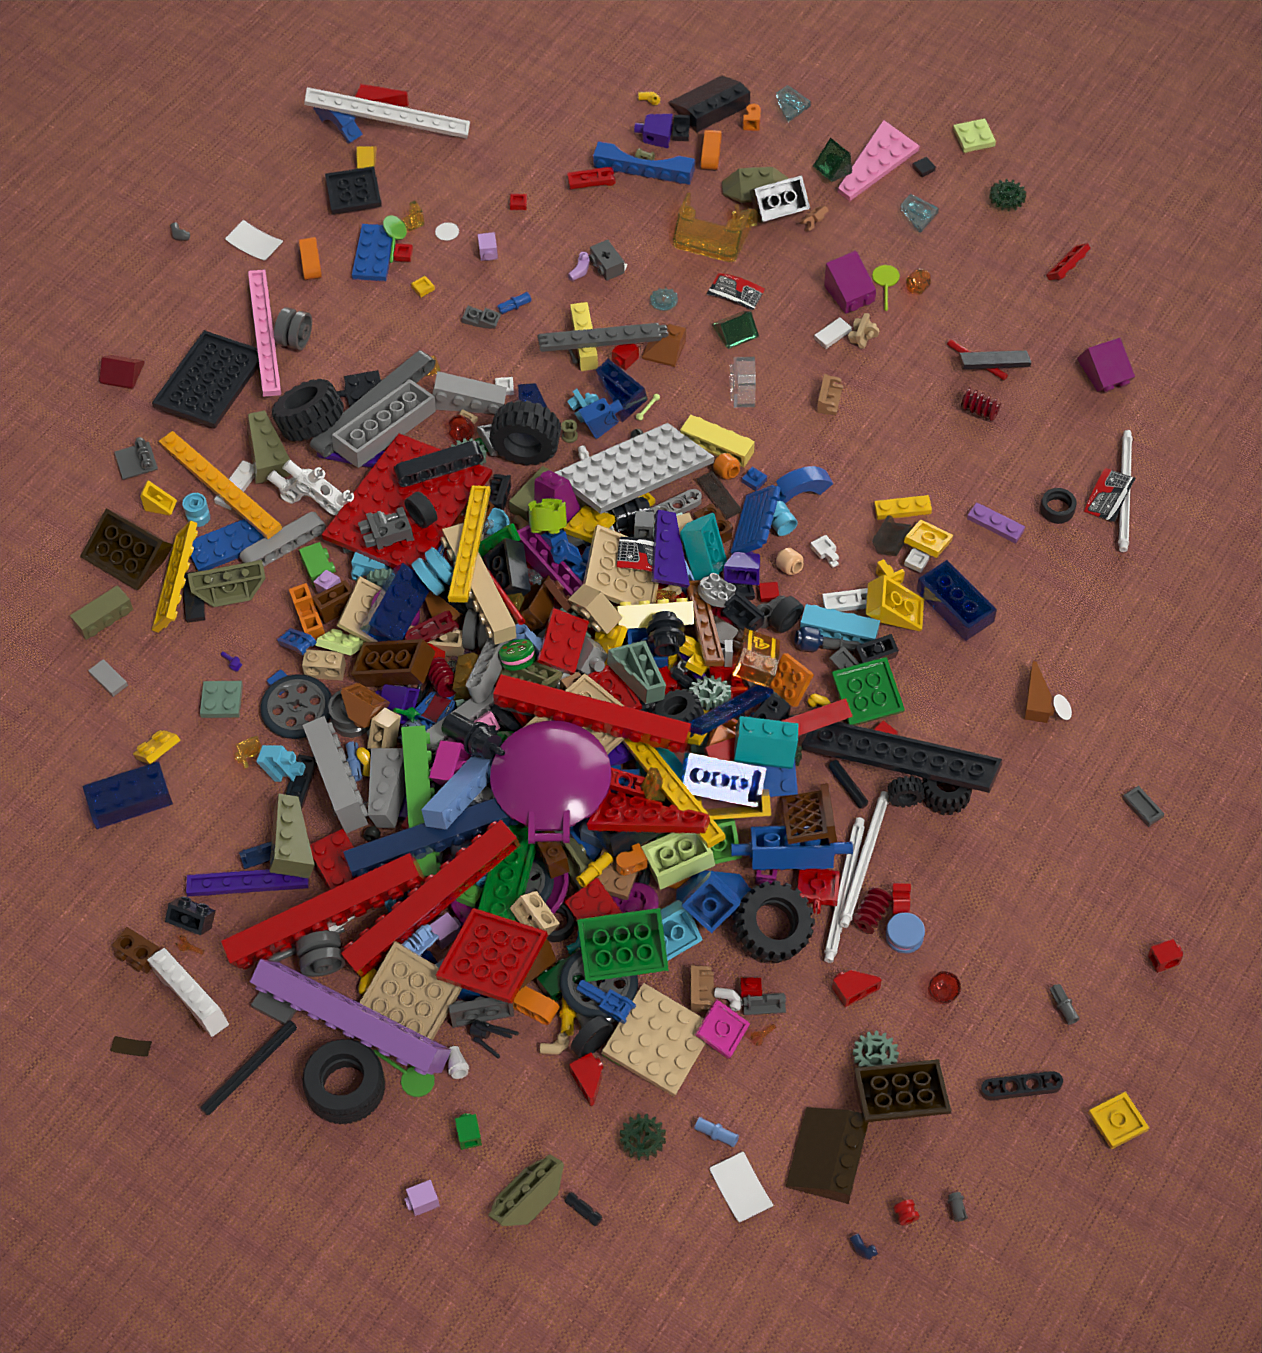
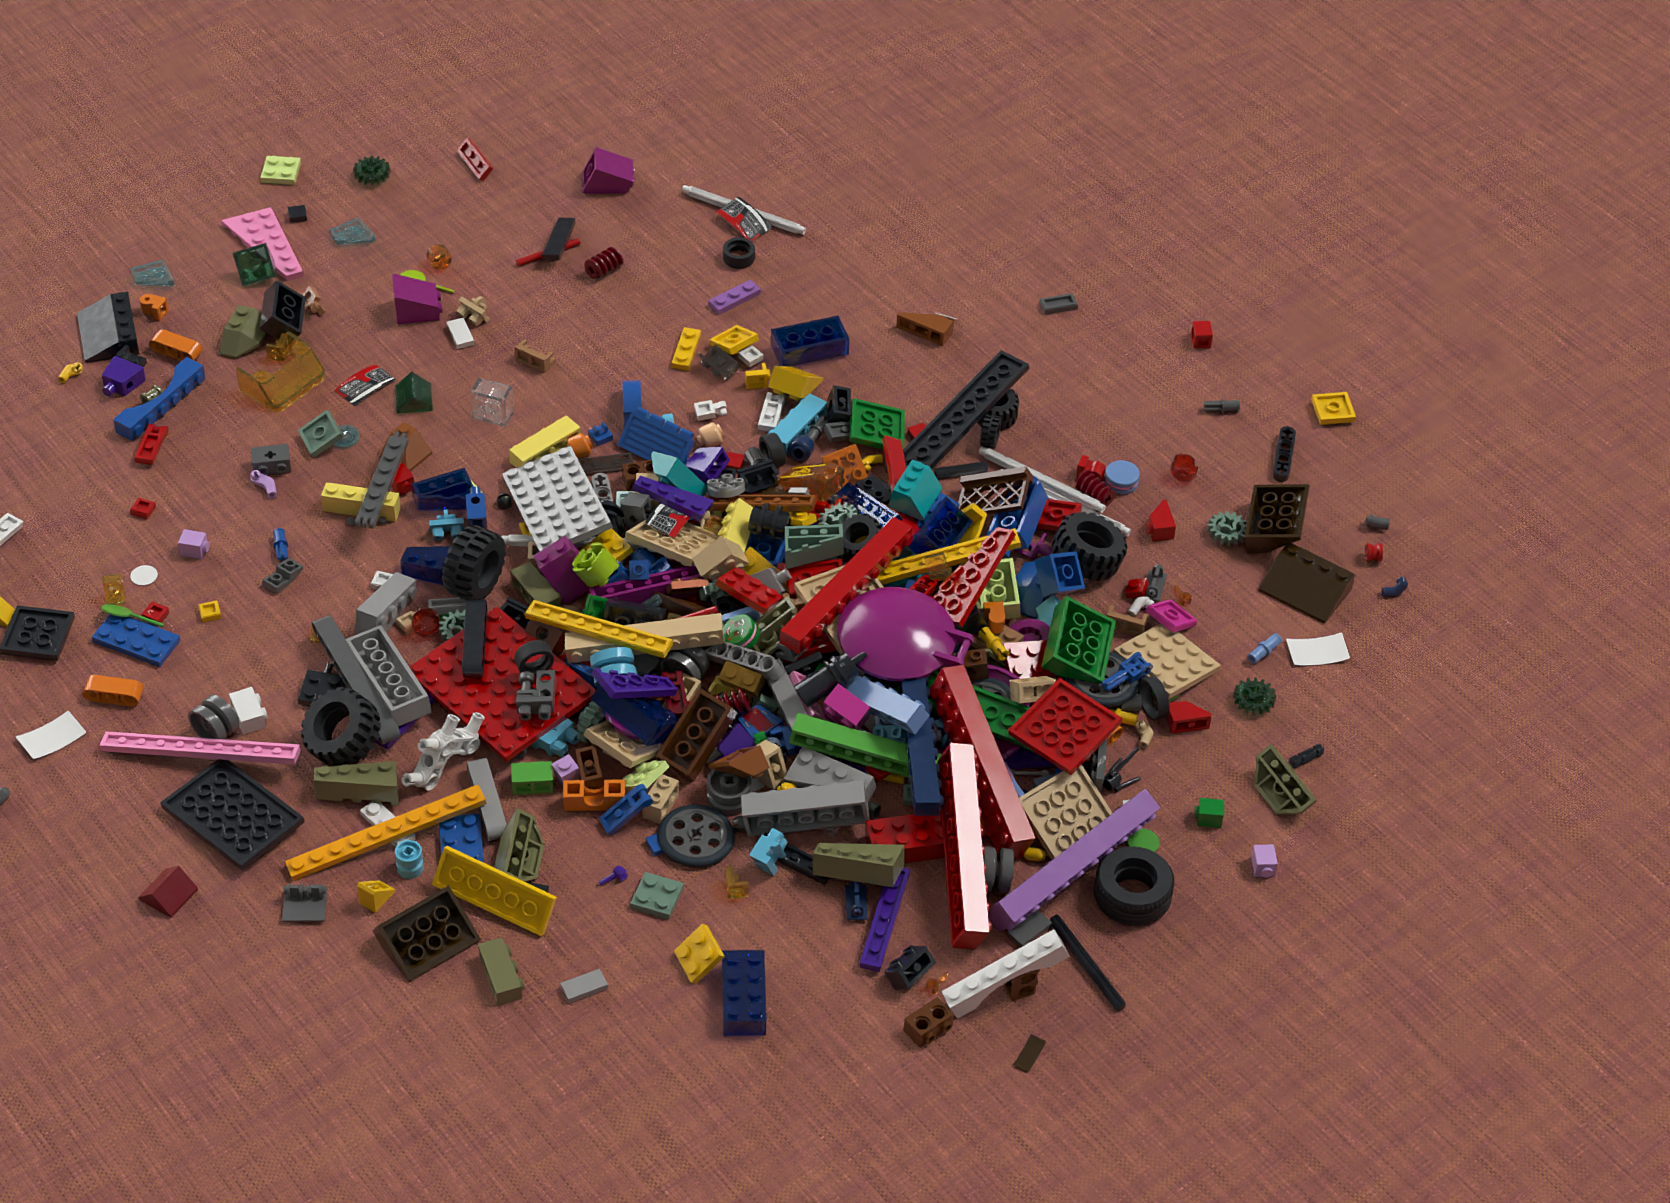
camera: 75 degrees left, 10 degrees down
(320, 348) = (248, 710): none -> white brick
(397, 580) = (634, 685): none -> dark purple wing
(651, 280) = (320, 433): none -> sand green plate

